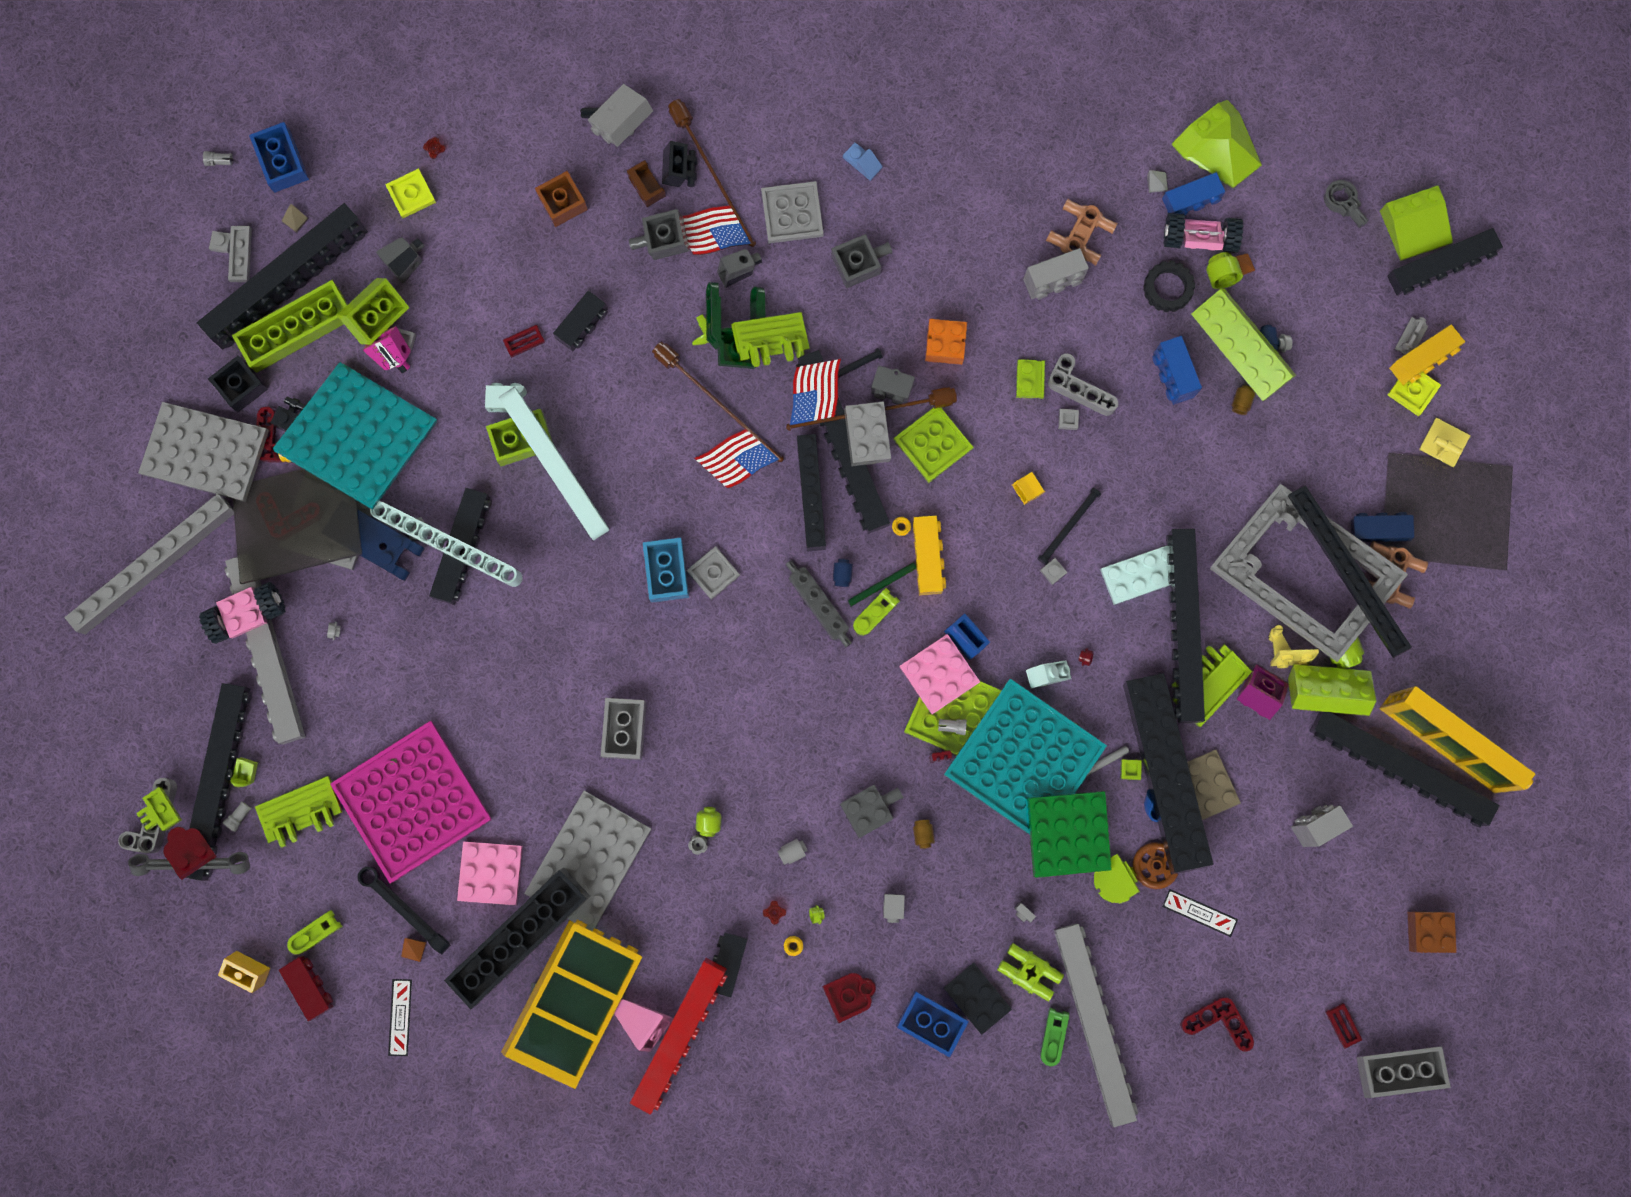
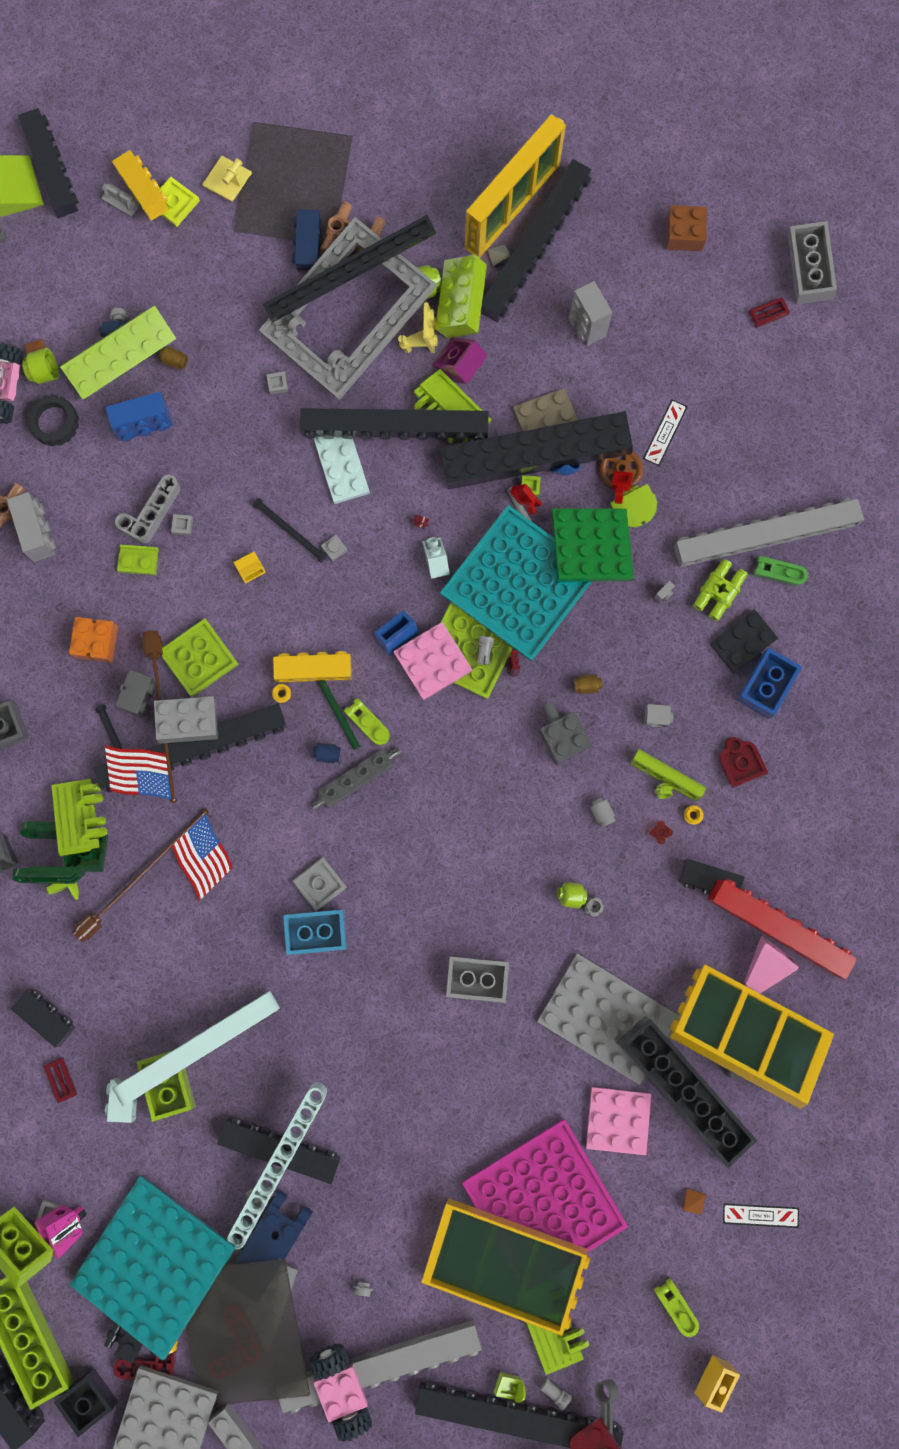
camera: 90 degrees left, 0 degrees up
(306, 988) = (733, 1315): dark red brick -> none
(353, 764) = (506, 1266): none -> clear green window
(434, 939) = (685, 1178): black piece -> none
(811, 492) = (242, 781): black brick -> none
(833, 919) = (667, 774): none -> lime brick
(1117, 763) = (525, 496): none -> red plate
(1138, 864) = (621, 482): none -> red plate
(1224, 505) = (277, 382): none -> light grey plate
(1225, 1017) = (761, 416): dark red beam -> none
(1384, 729) = (498, 255): none -> light grey slope

